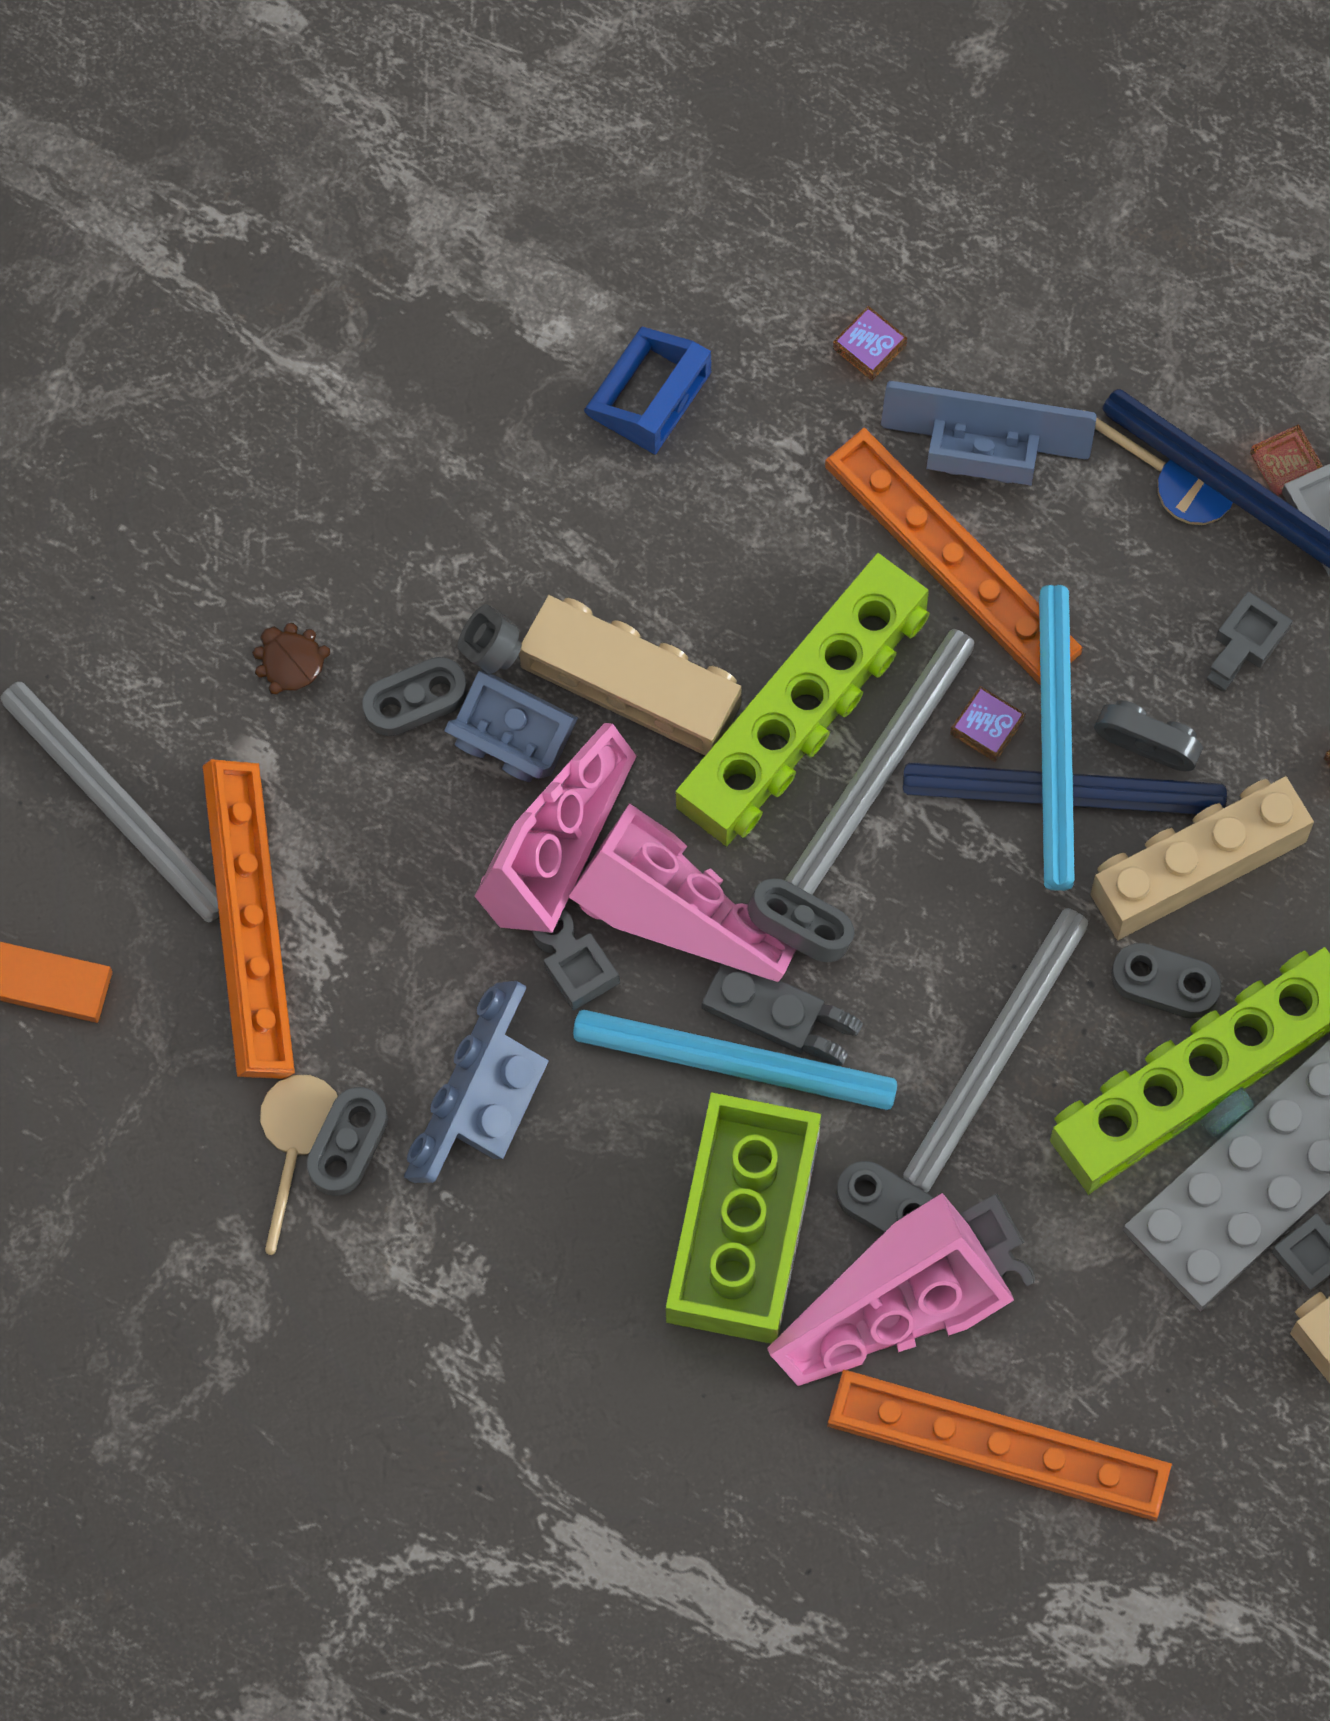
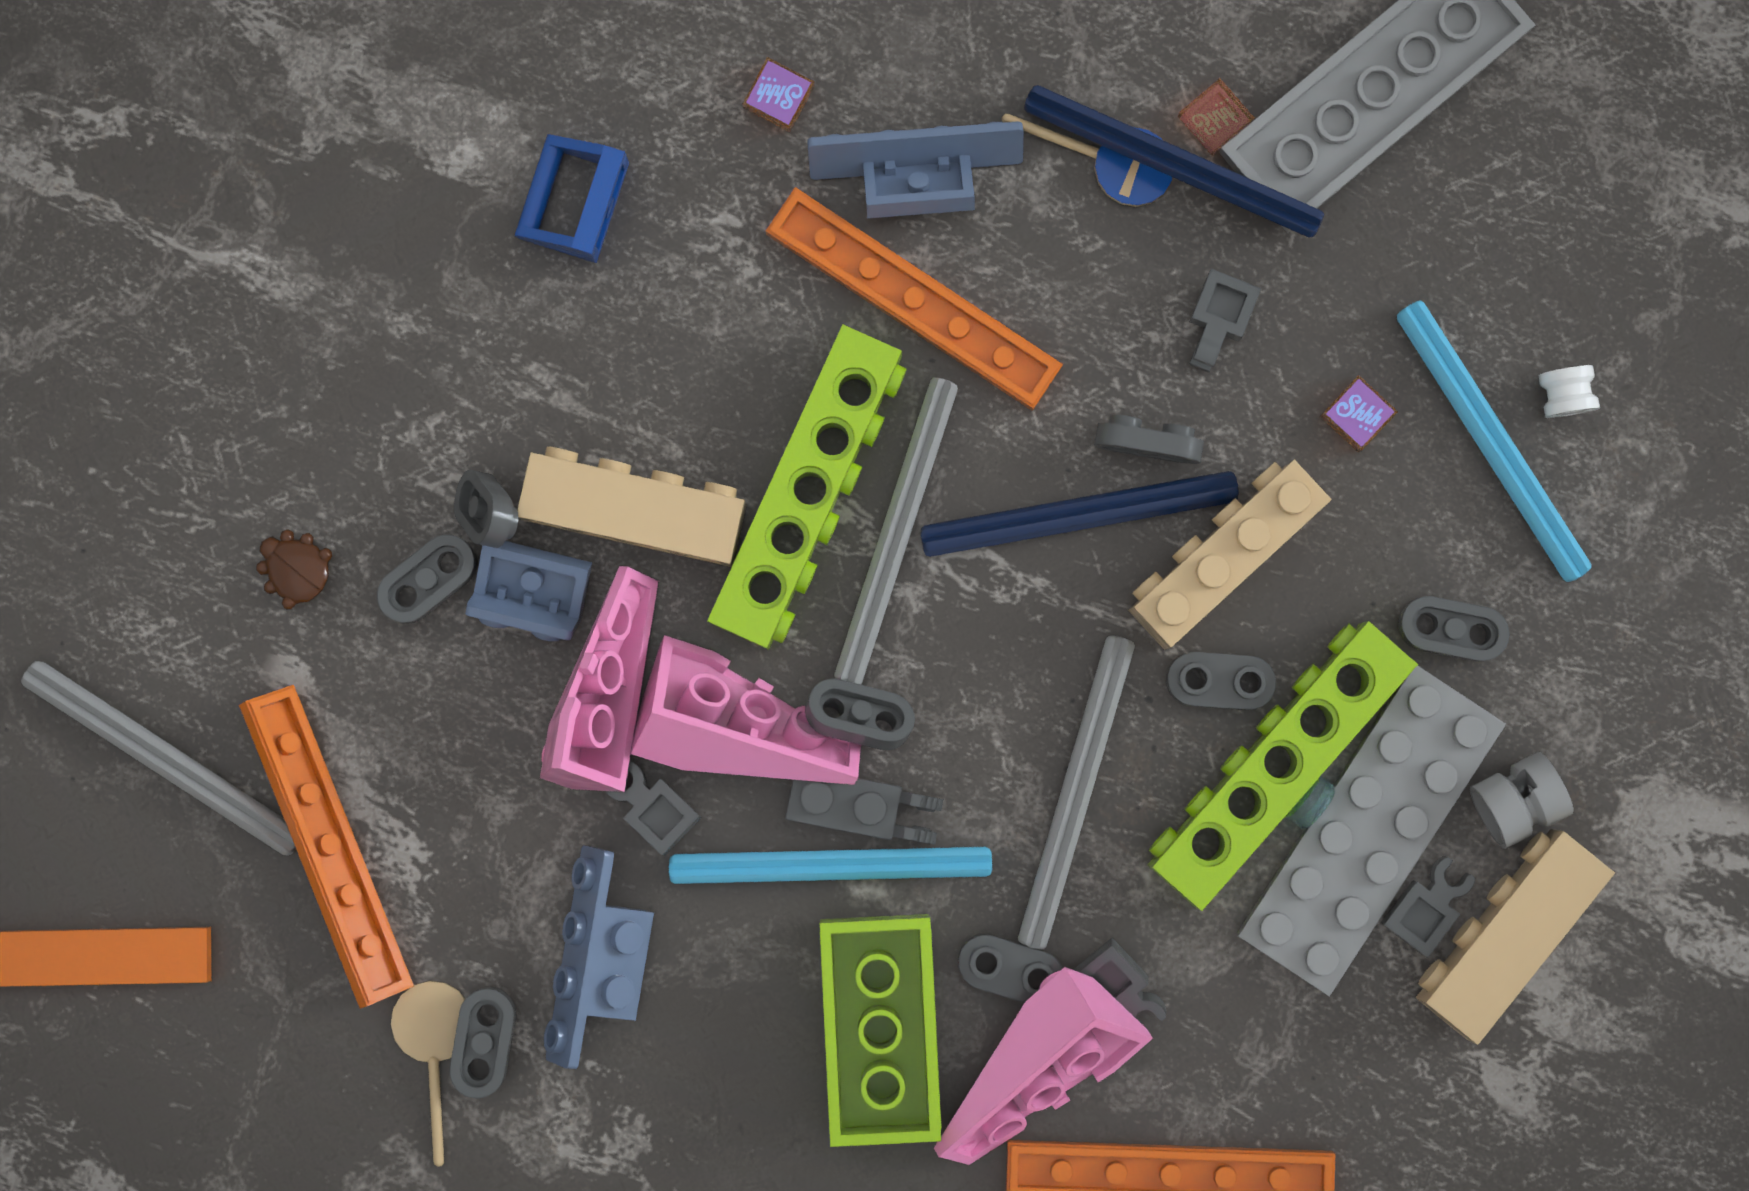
camera: 20 degrees left, 15 degrees up
(987, 723) = (989, 464): tile -> none
(1056, 738) = (1061, 469): medium azure axle -> none

